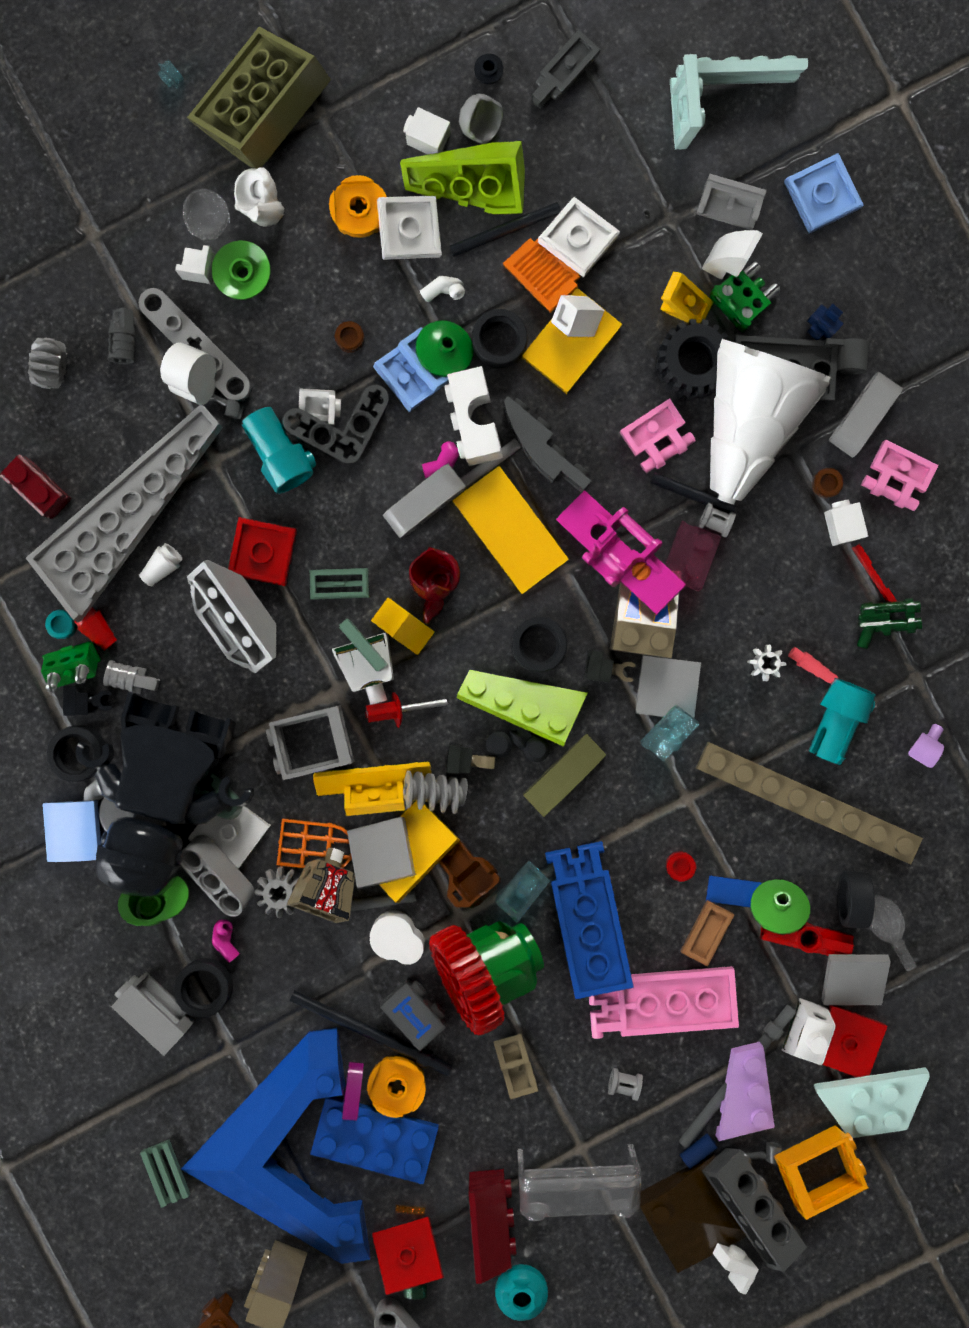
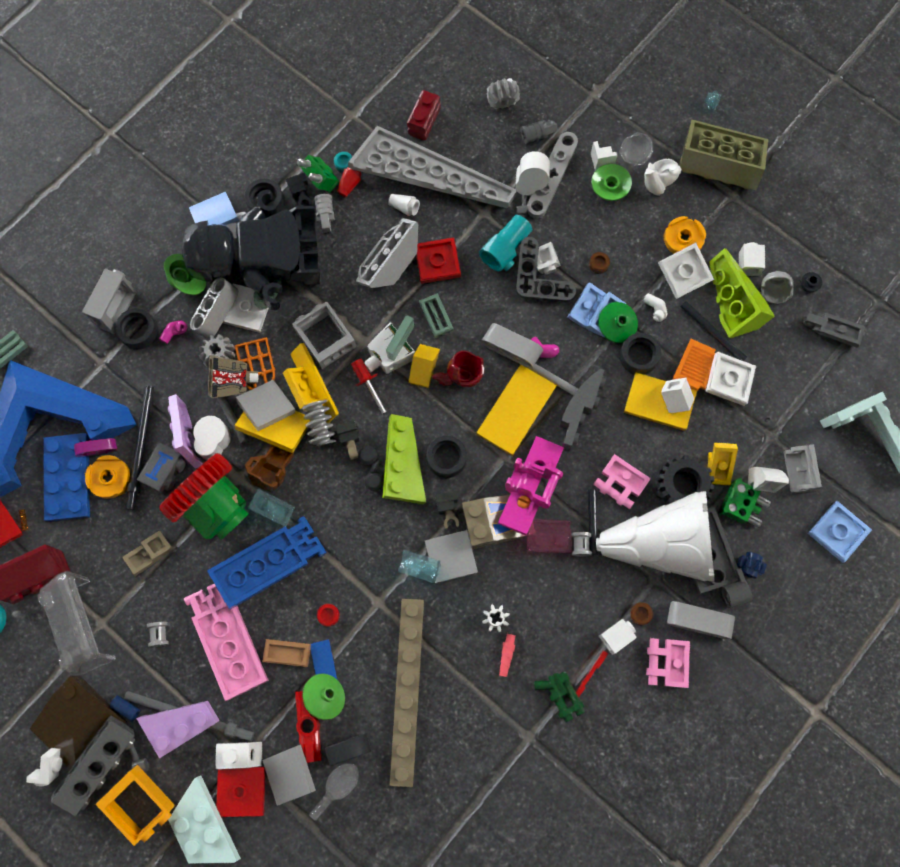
camera: 70 degrees right, 15 degrees down
(386, 973) = (180, 427): none -> lavender wing
(468, 391) = (594, 345): white arch -> none
(564, 775) = (362, 507): olive slope -> none
(845, 709) = (486, 687): teal piece -> none
(927, 748) = (480, 762): lavender piece -> none

